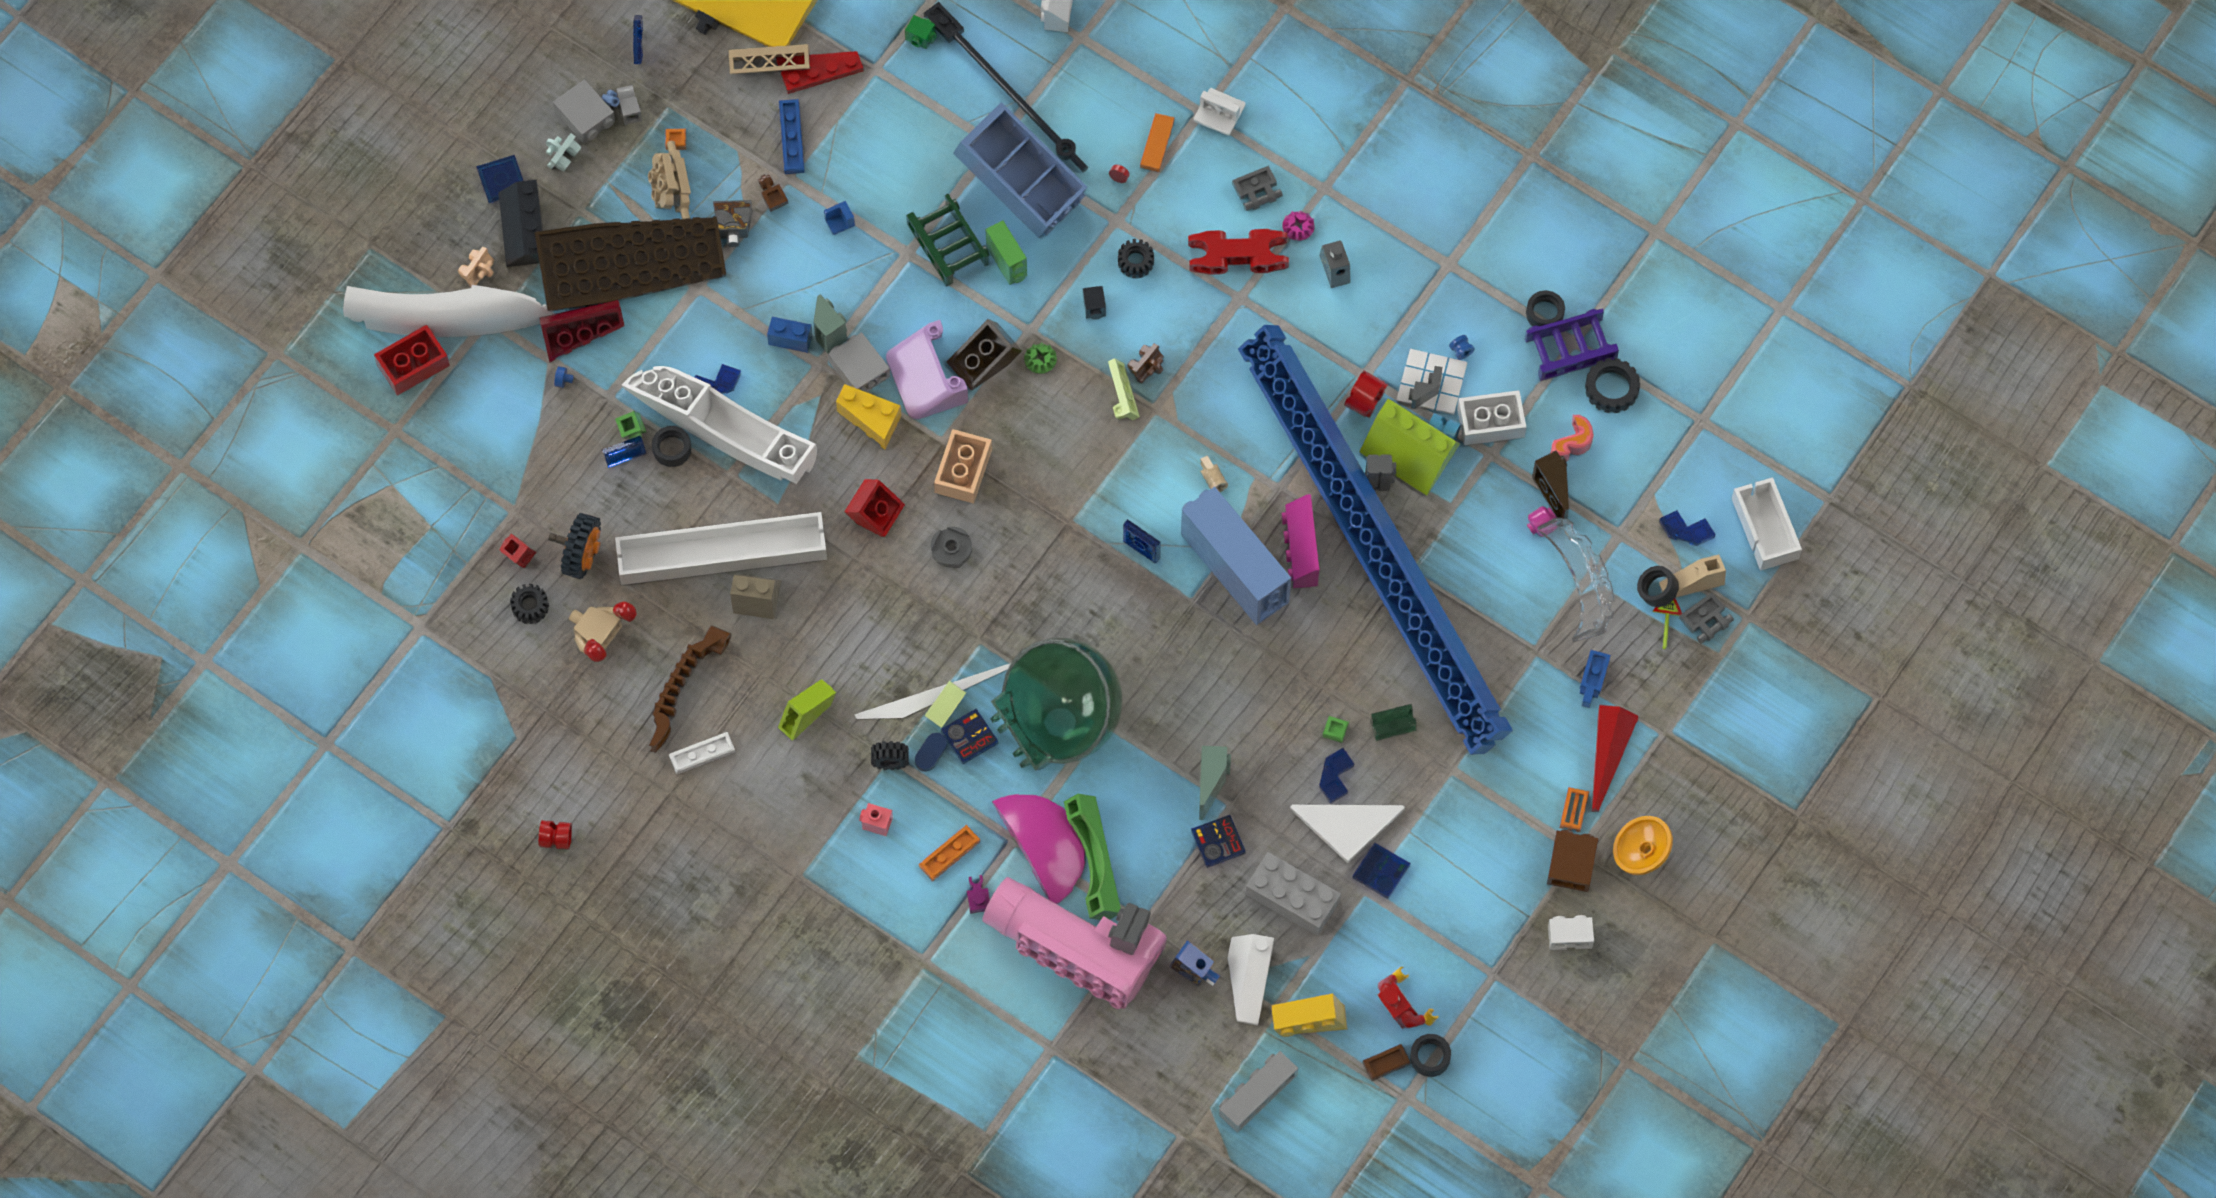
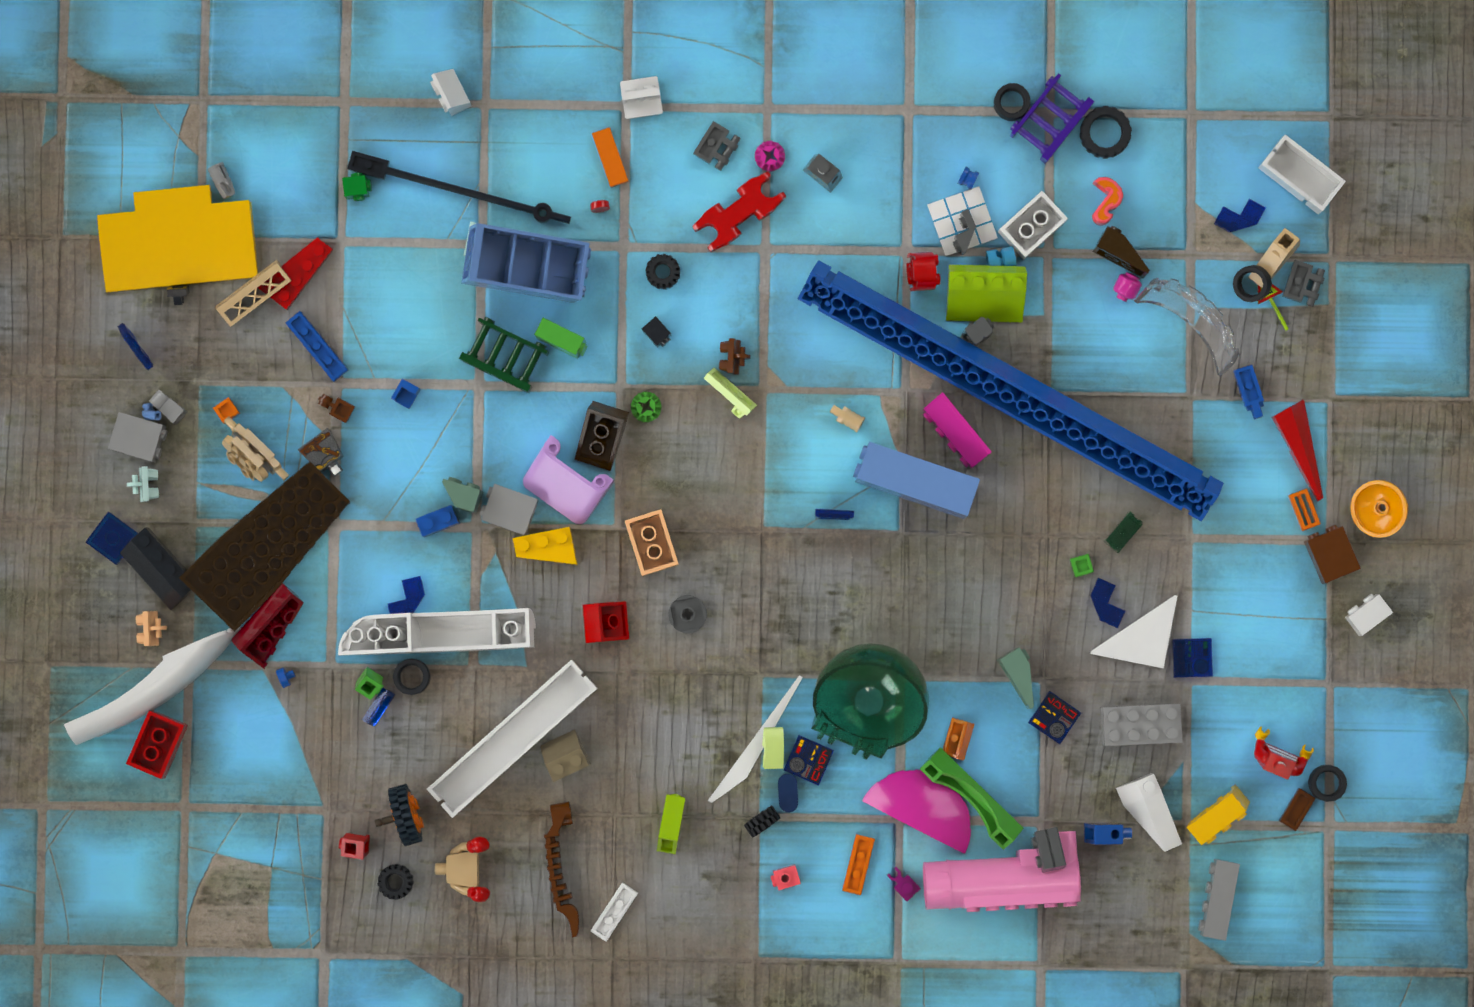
camera: 30 degrees left, 20 degrees up
(1118, 804) = (958, 738): none -> orange slope

